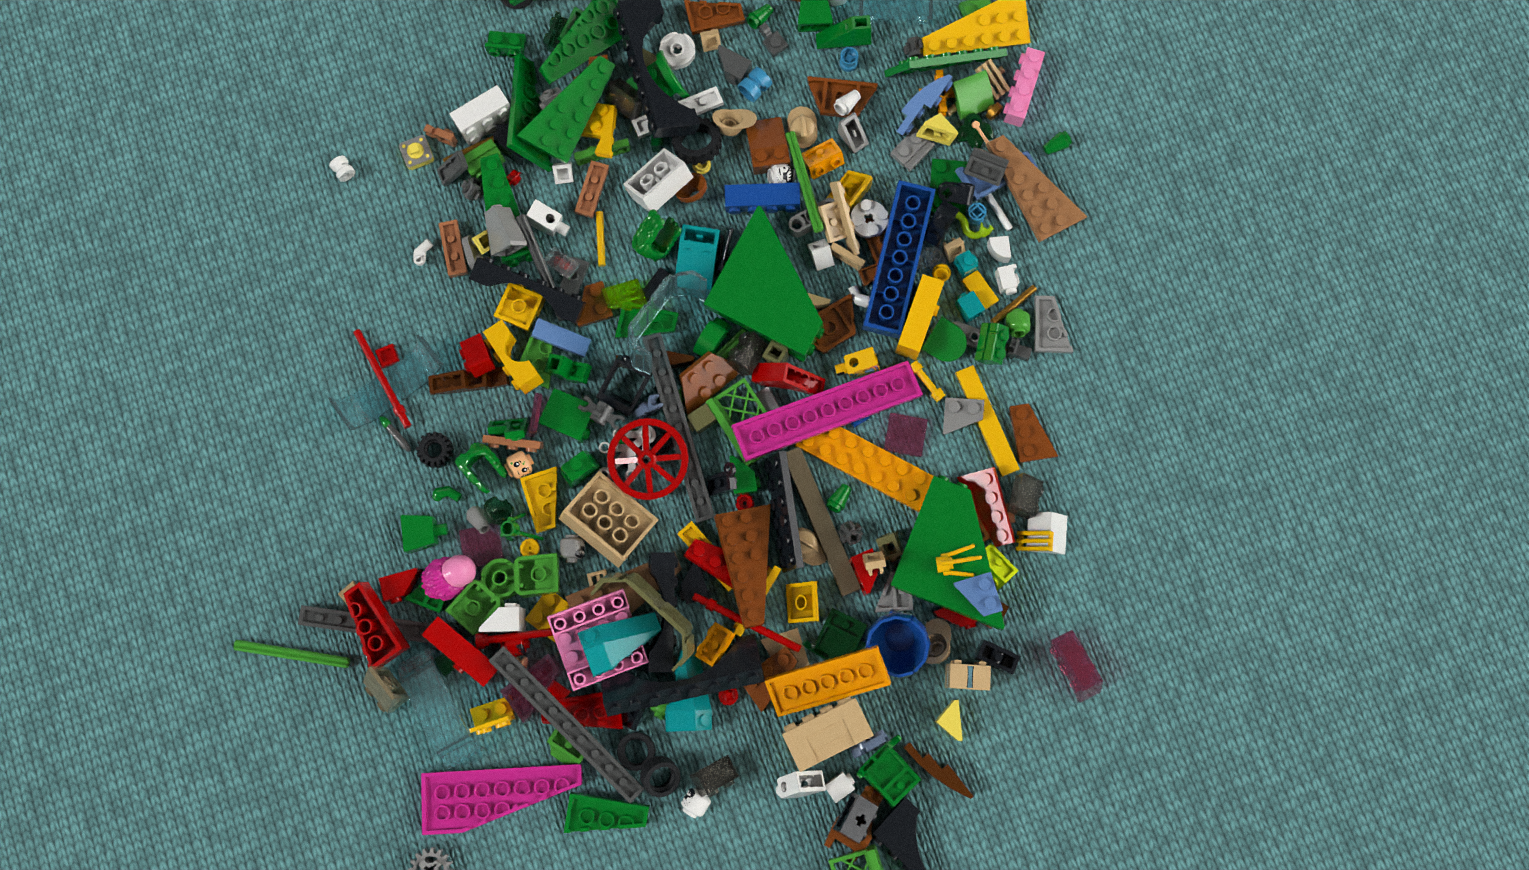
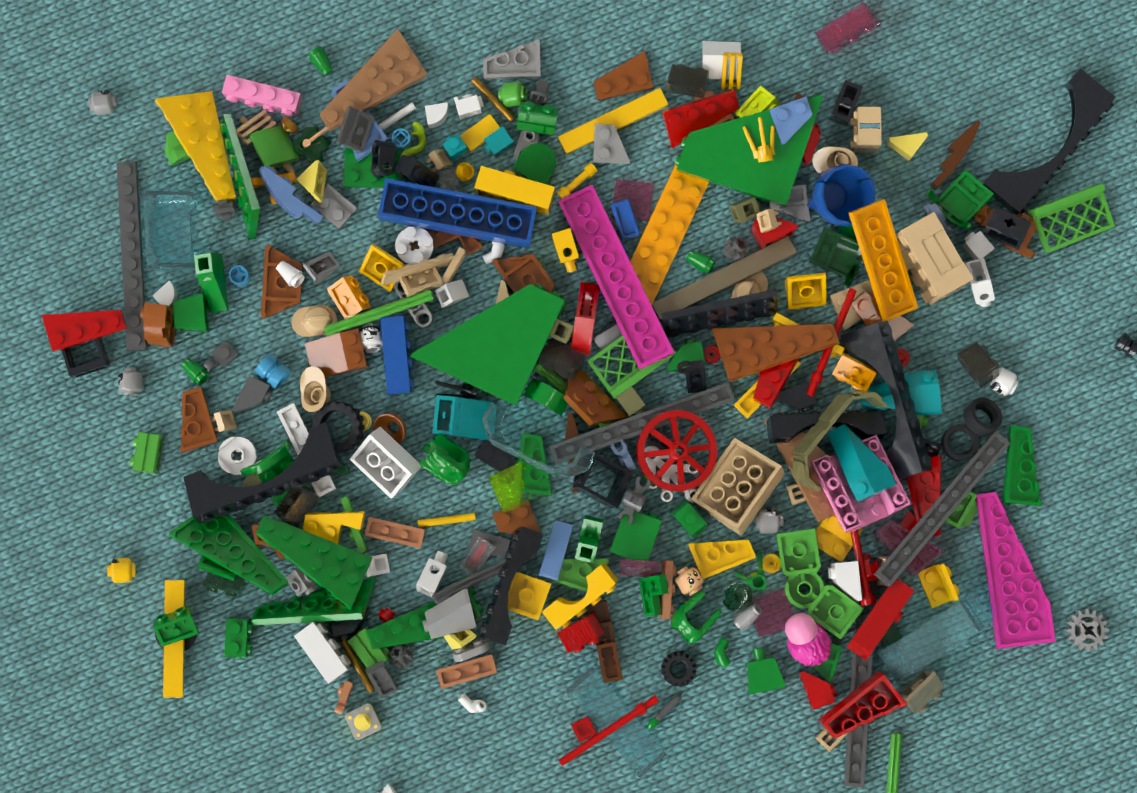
camera: 90 degrees left, 5 degrees up
(886, 425) = (625, 219): none -> blue tile

